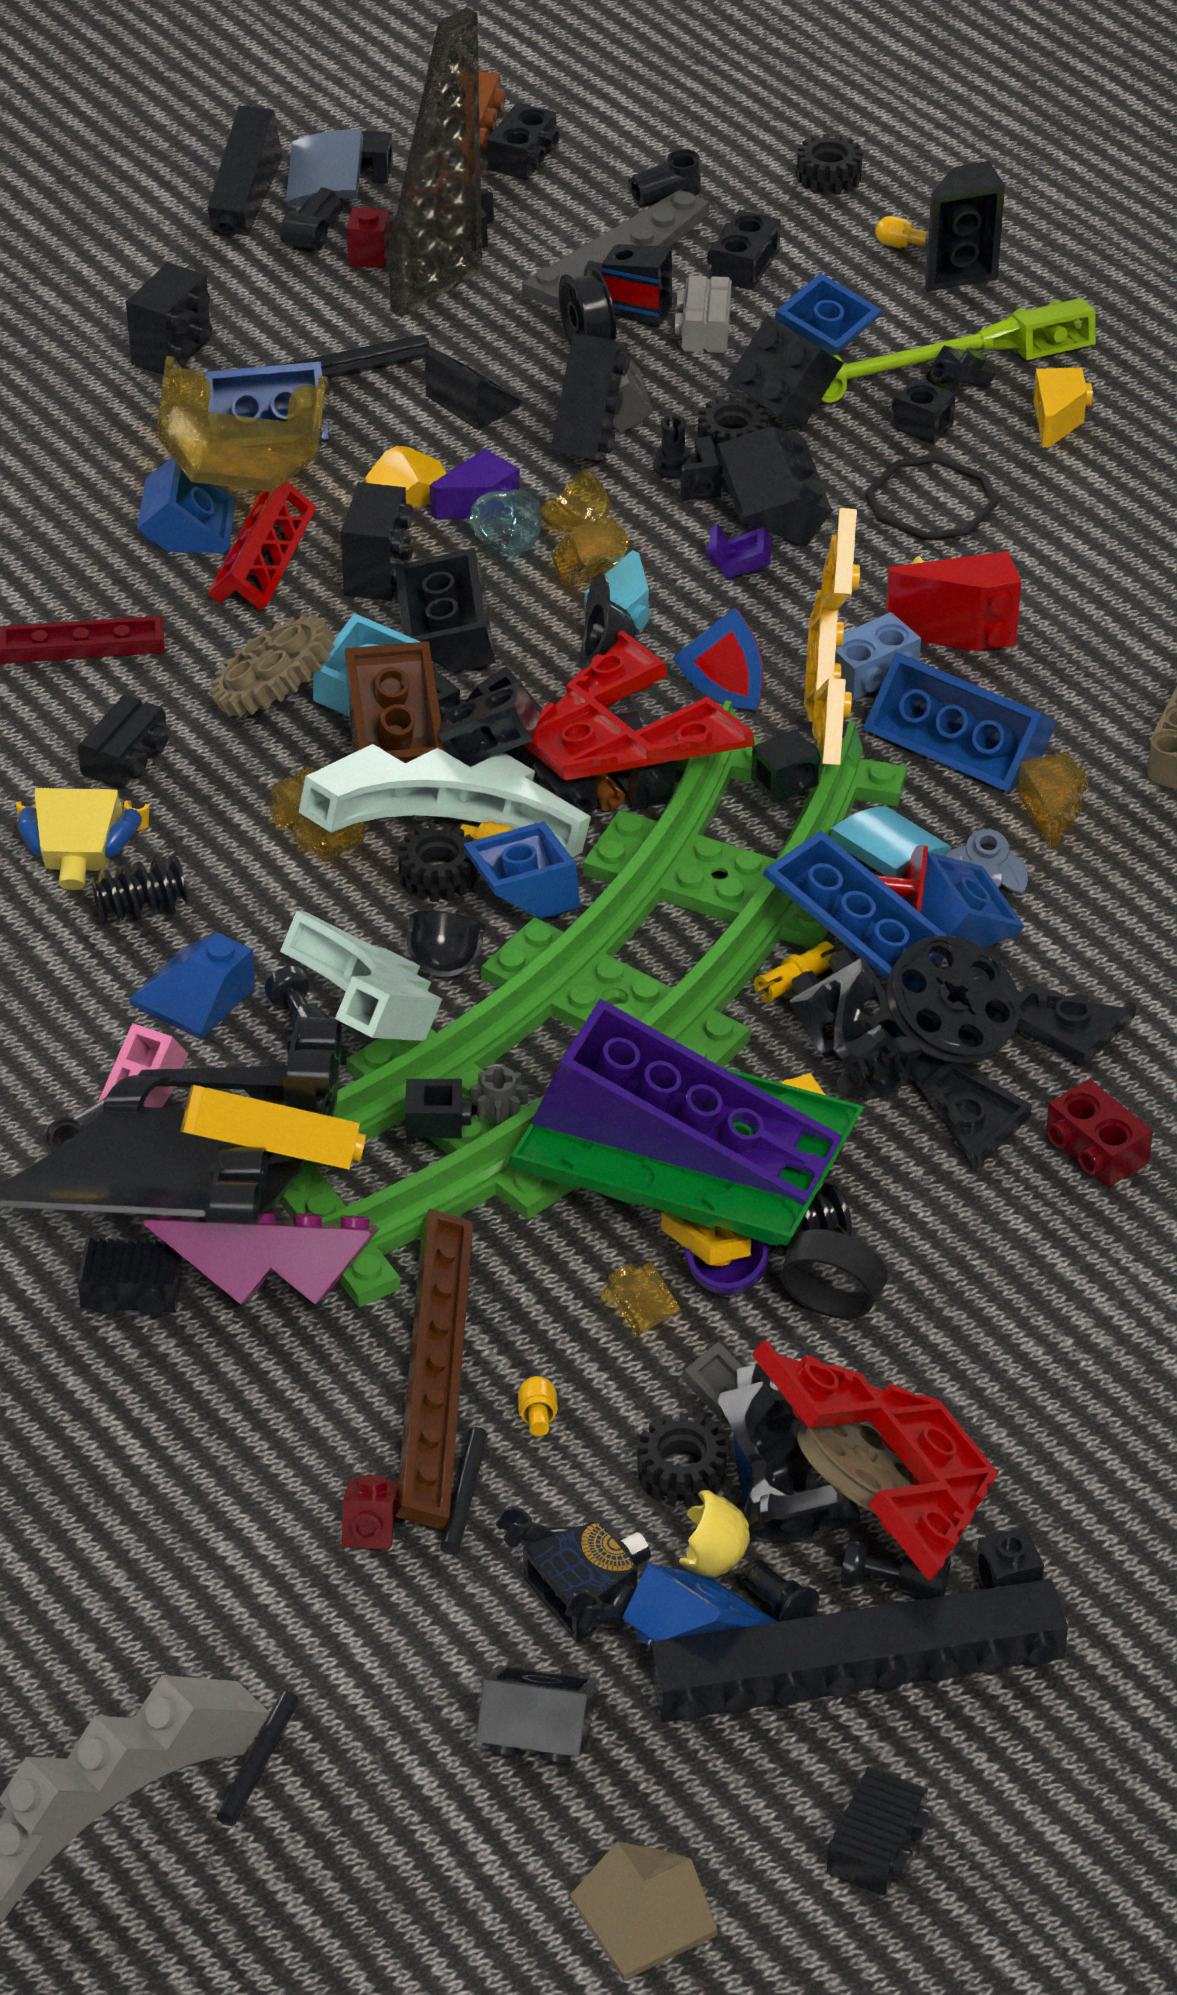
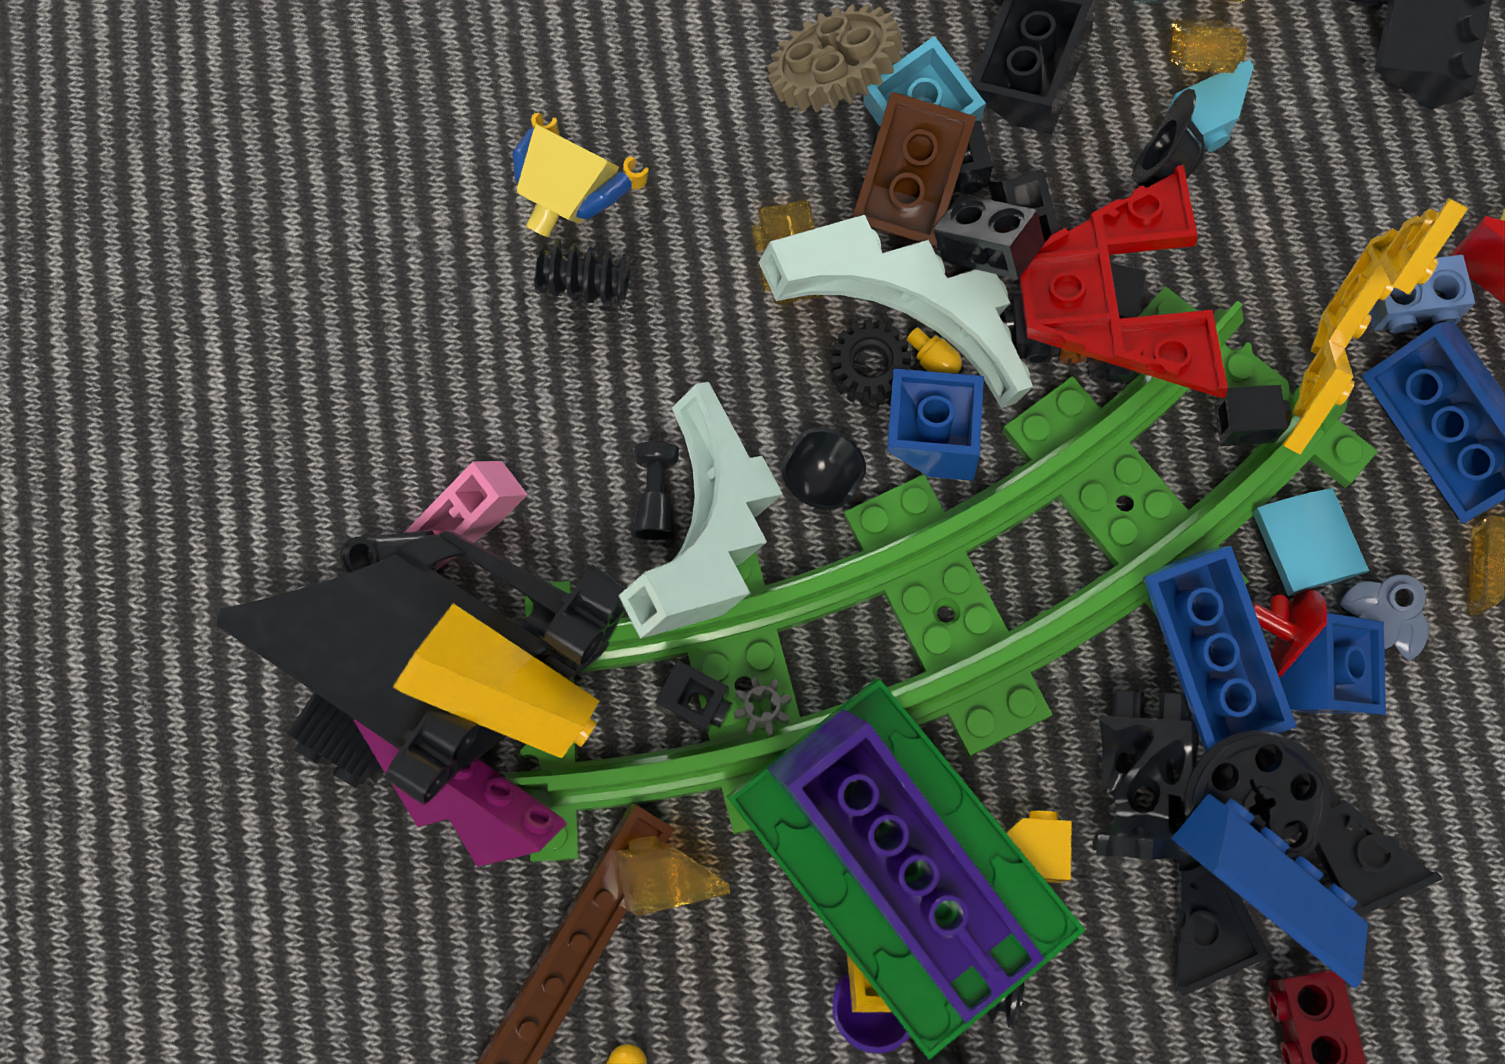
camera: 30 degrees right, 30 degrees up
(123, 742) = (664, 82): black brick -> none
(199, 985) = (580, 410): blue slope -> none
(489, 1242) = (663, 877): none -> clear yellow slope
(641, 1296) = (777, 997): clear yellow bracket -> none
(725, 662) = (1267, 243): blue shield -> none
(741, 553) = (1358, 98): dark purple bracket -> none
(780, 978) = (1130, 665): yellow pin -> none
(996, 1037) = (1277, 885): none -> blue slope

